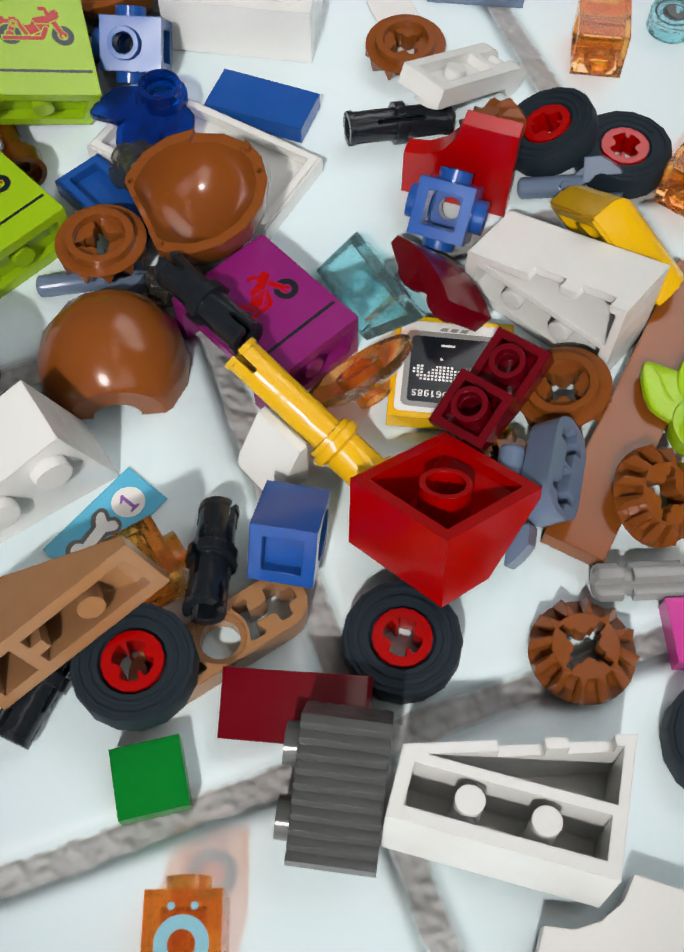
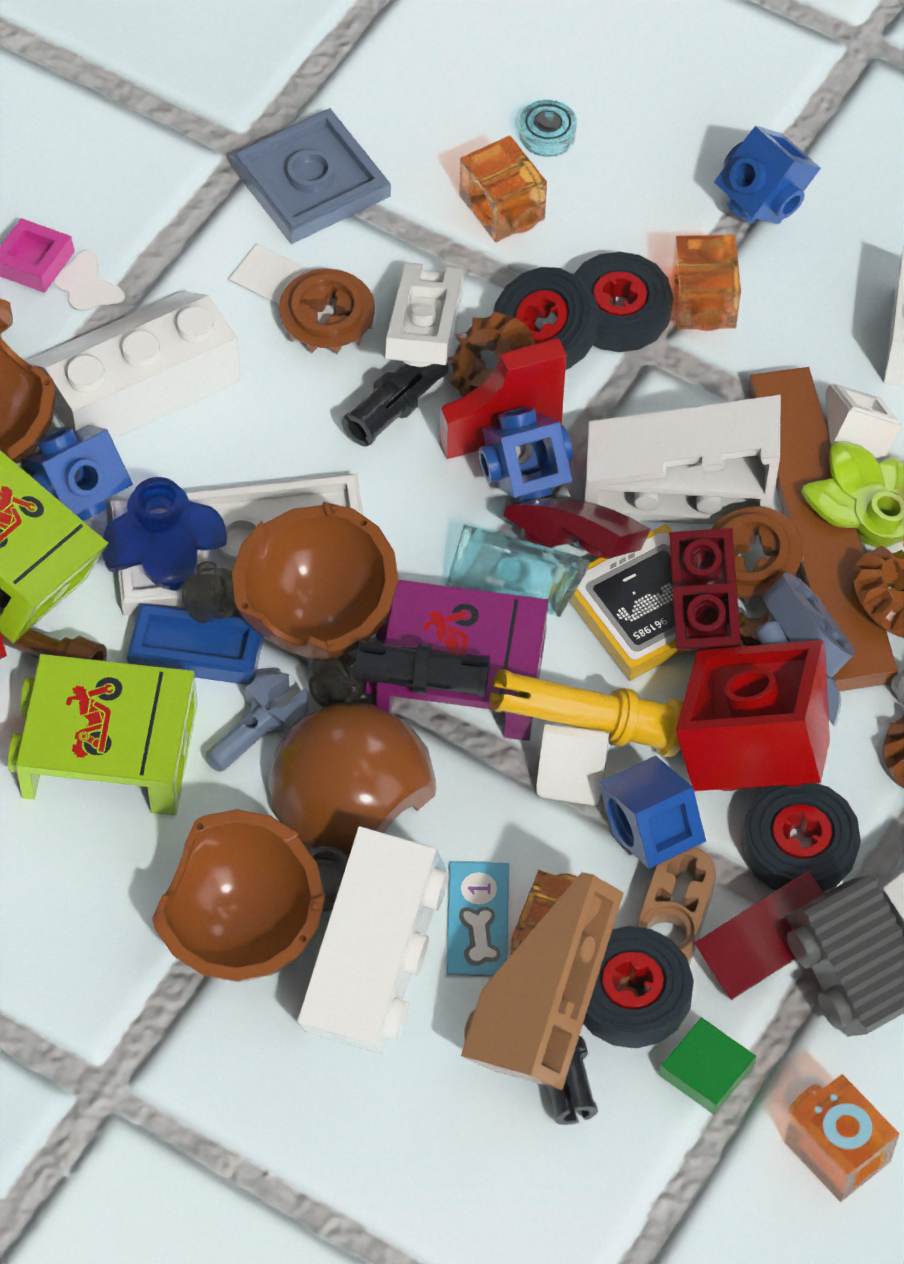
camera: 40 degrees left, 5 degrees down
(78, 239) = (246, 659): dark orange gear -> none
(211, 561) = (586, 854): black pin -> none
(265, 104) = (246, 454): blue tile -> none
(364, 374) = (588, 641): clear orange dish -> none
(551, 186) = (612, 357): sand blue bar -> none
(615, 223) = (678, 382): yellow brick -> none

